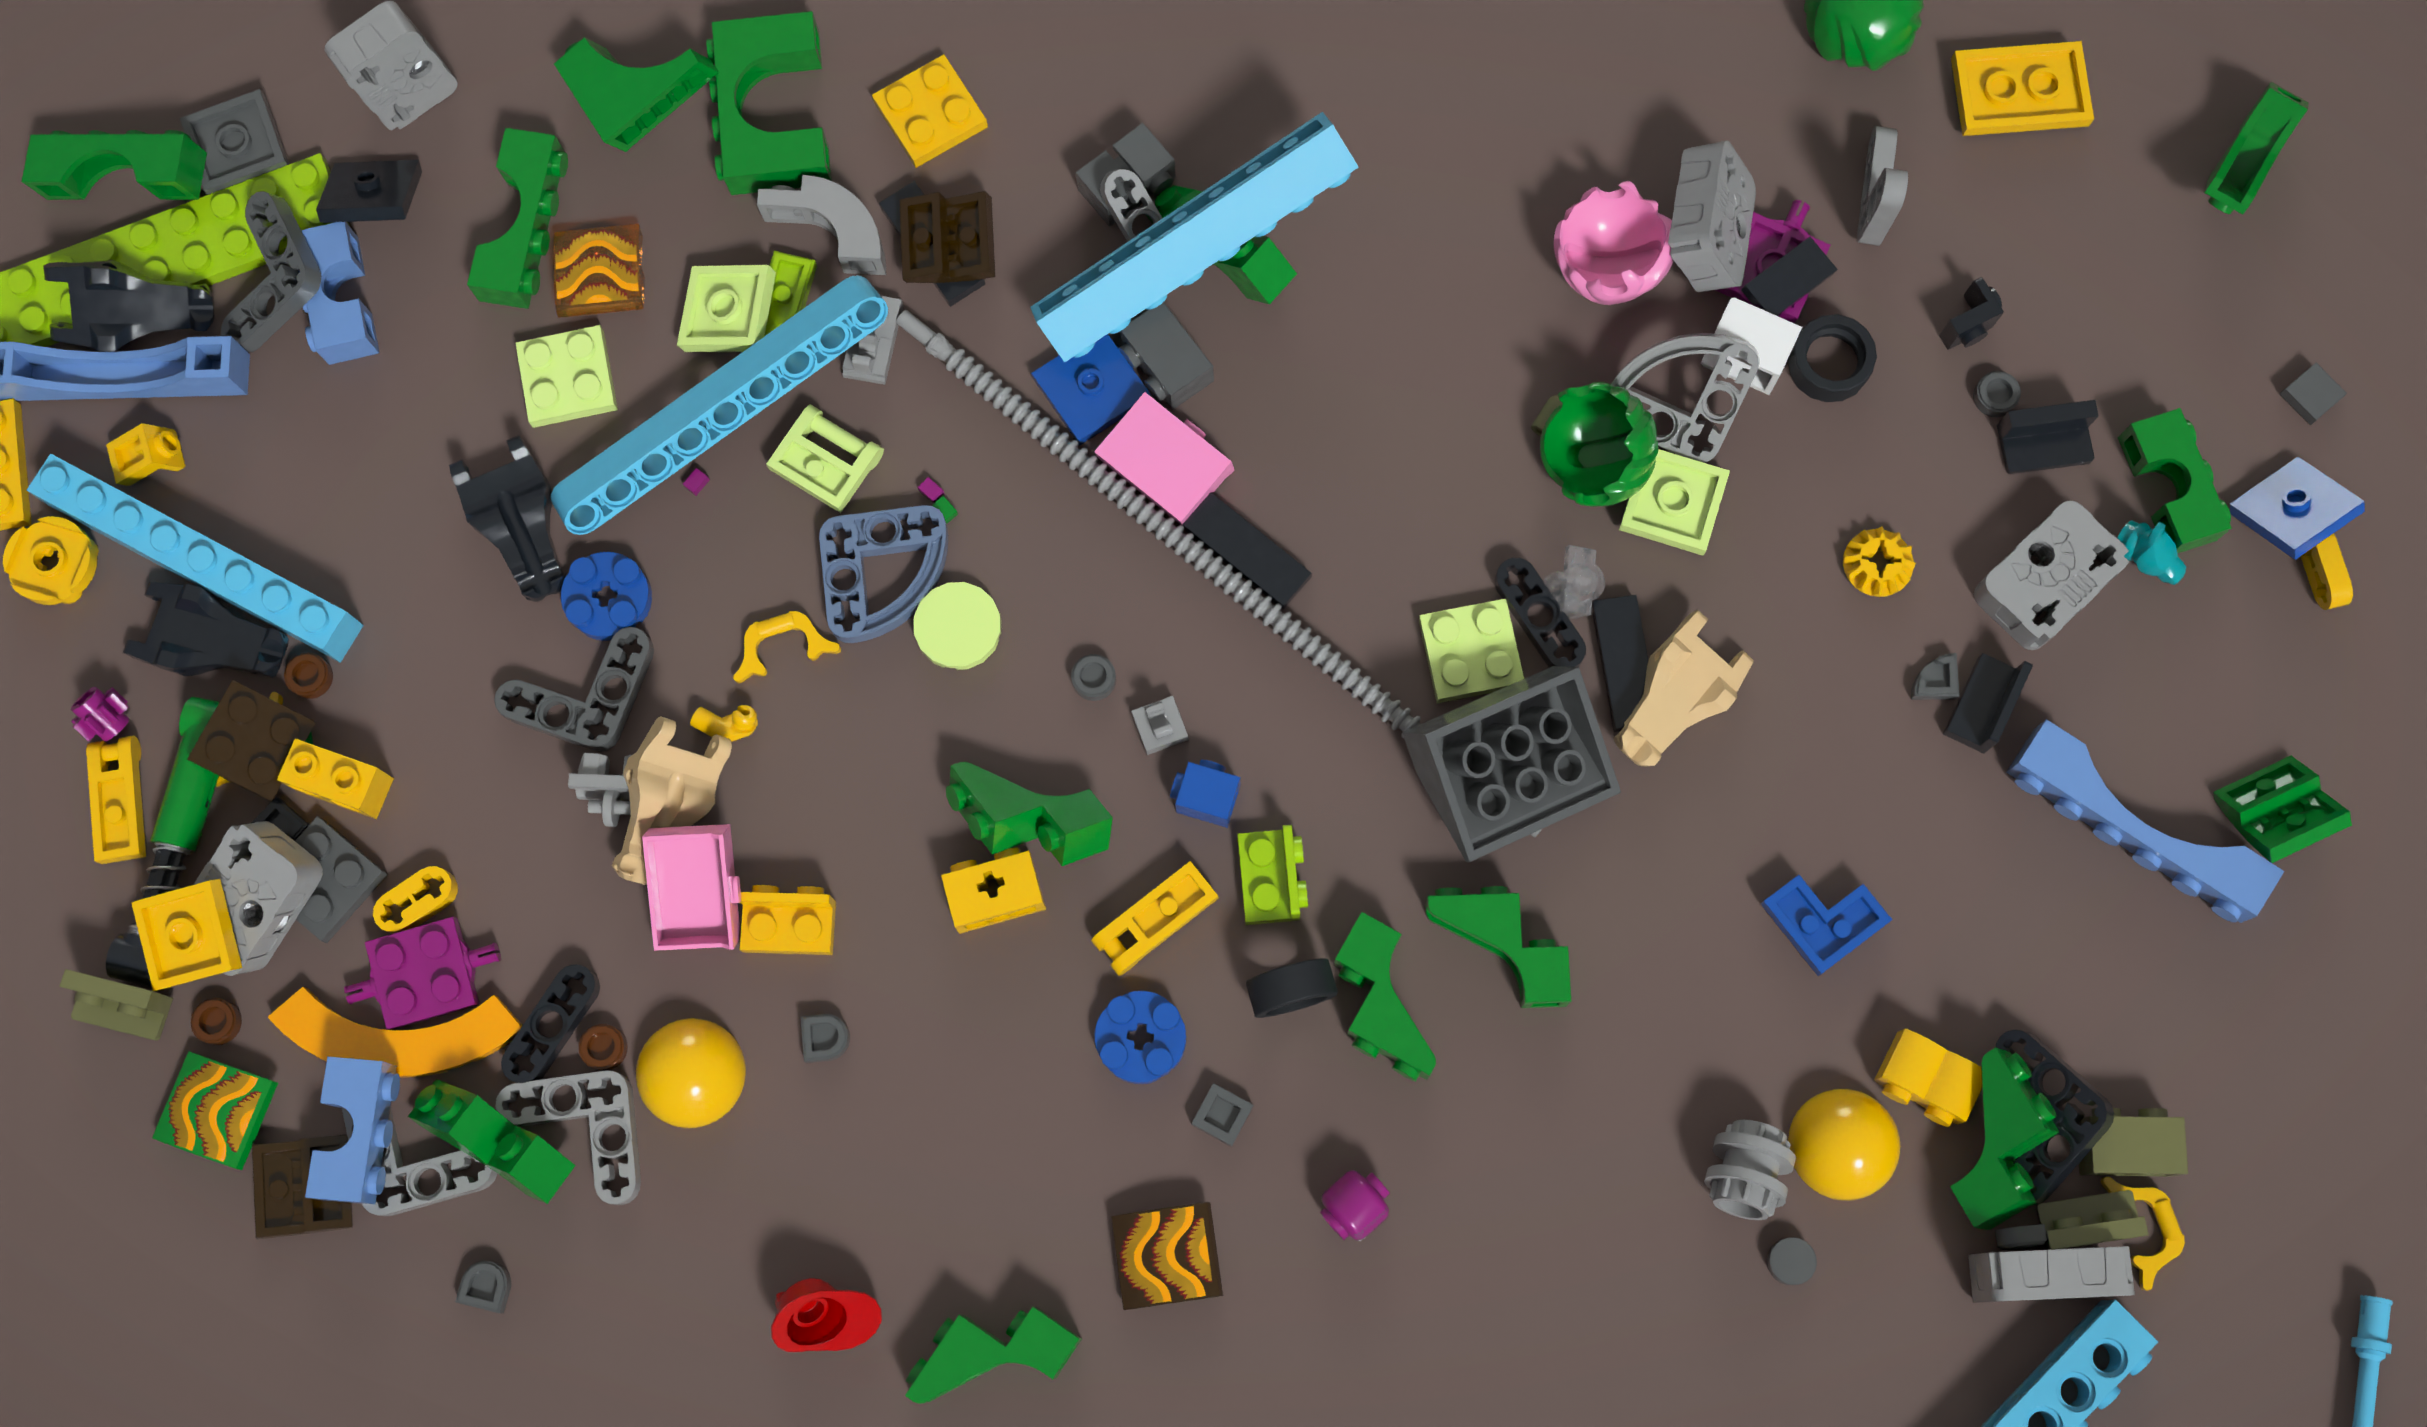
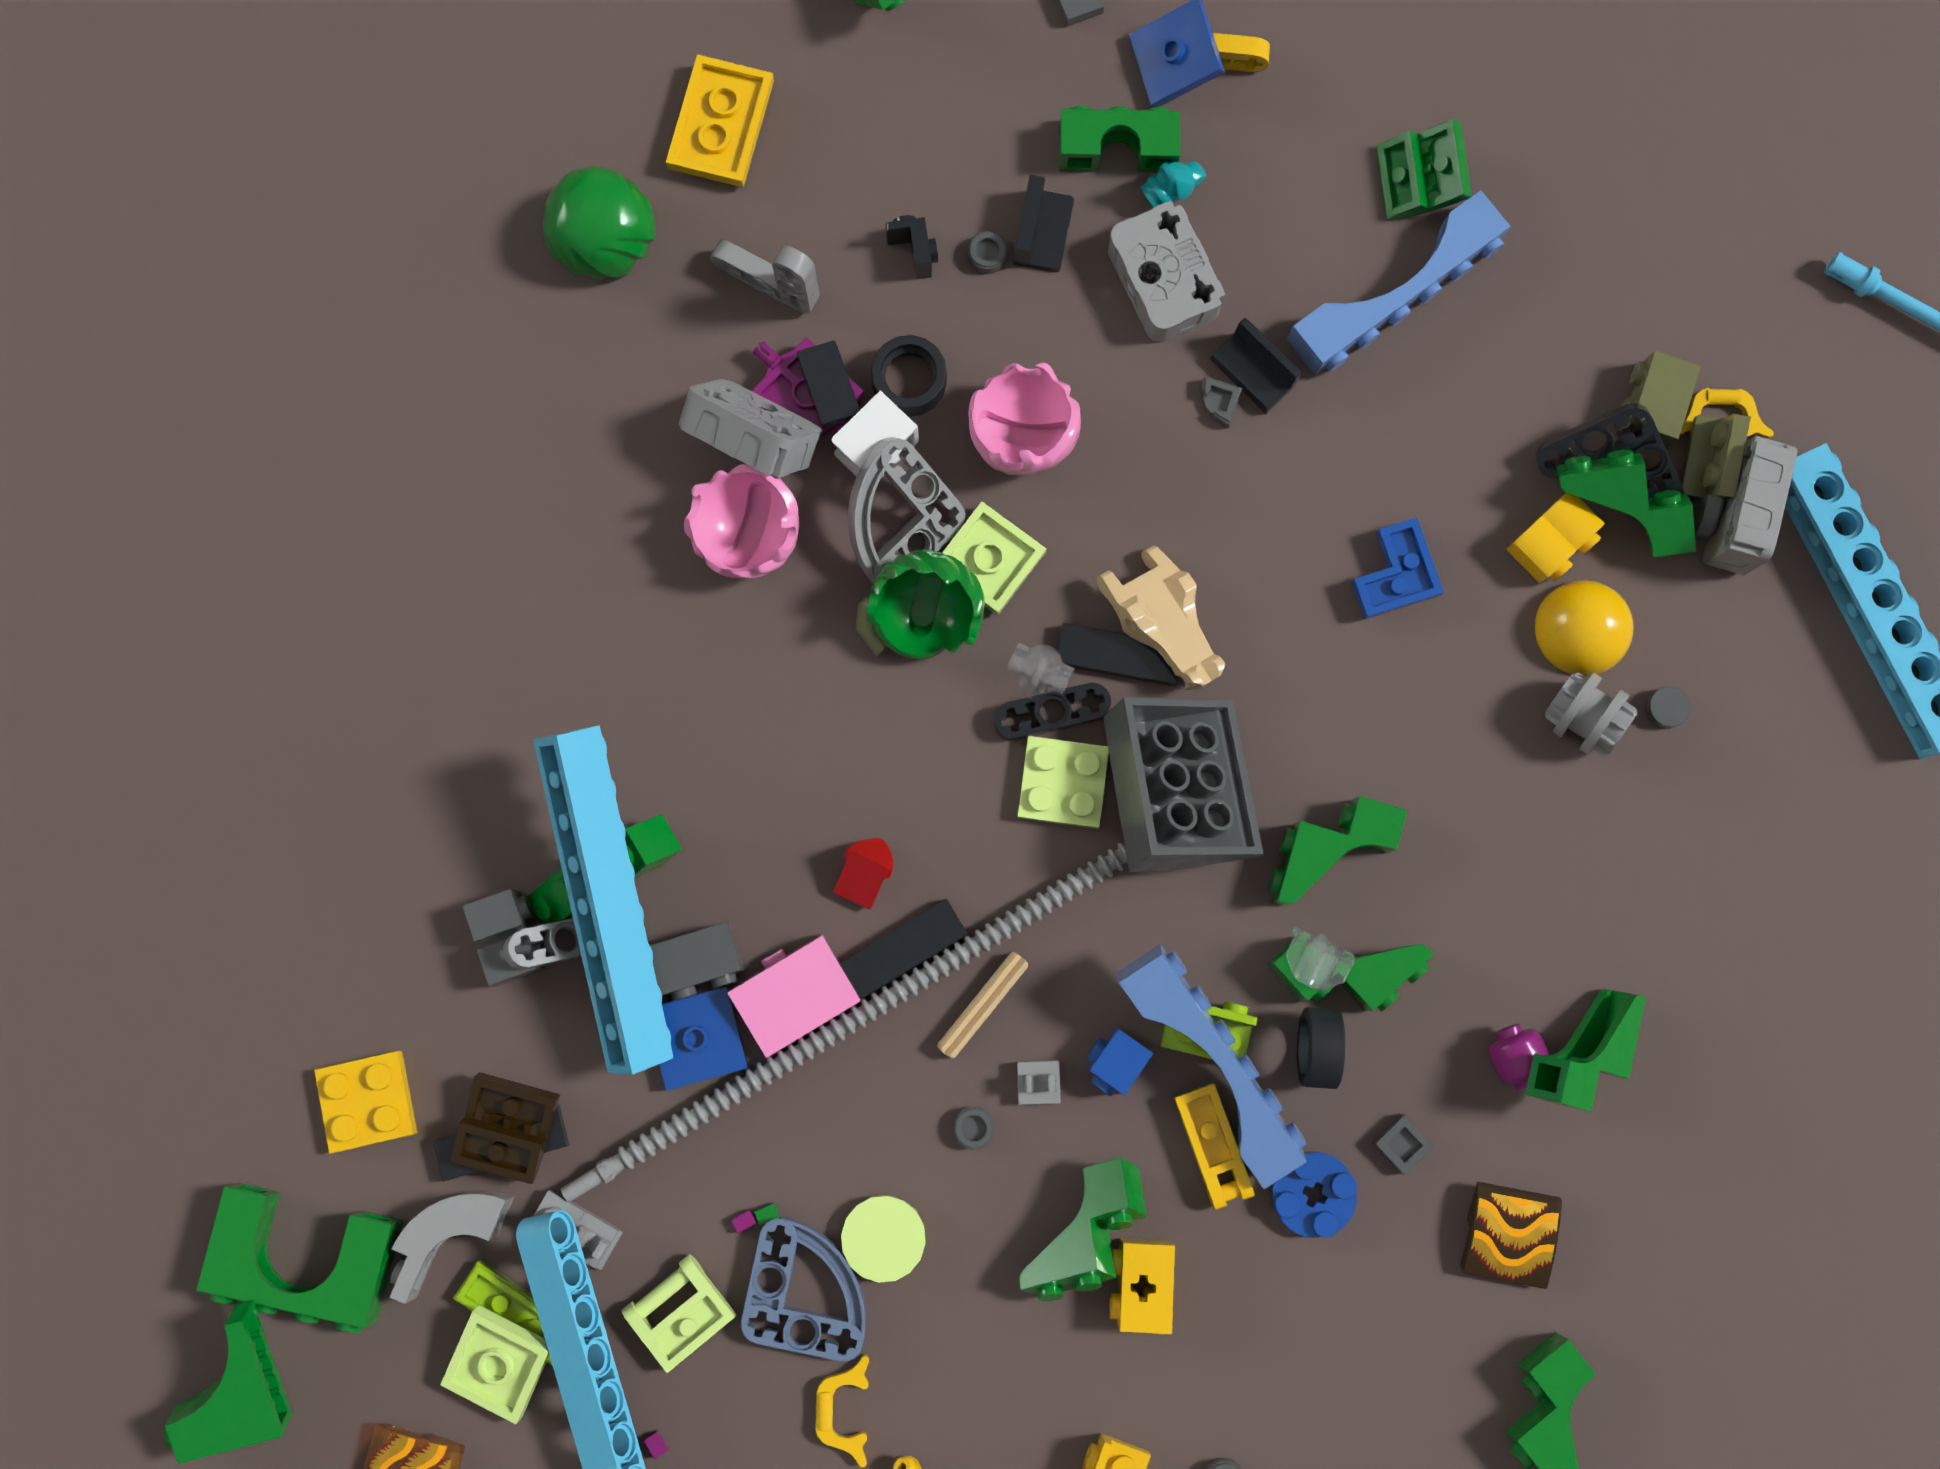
camera: 80 degrees left, 5 degrees up
(1182, 959) = (1163, 995): none -> medium blue arch
(1218, 645) = (982, 1005): none -> tan axle
(1309, 484) = (865, 871): none -> red tile
(1378, 948) = (1317, 961): none -> clear piece
(1397, 1287) = (1600, 1044): none -> green arch
(1829, 478) = (1024, 420): none -> bright pink piece
(1864, 574) = (1110, 424): yellow gear -> none

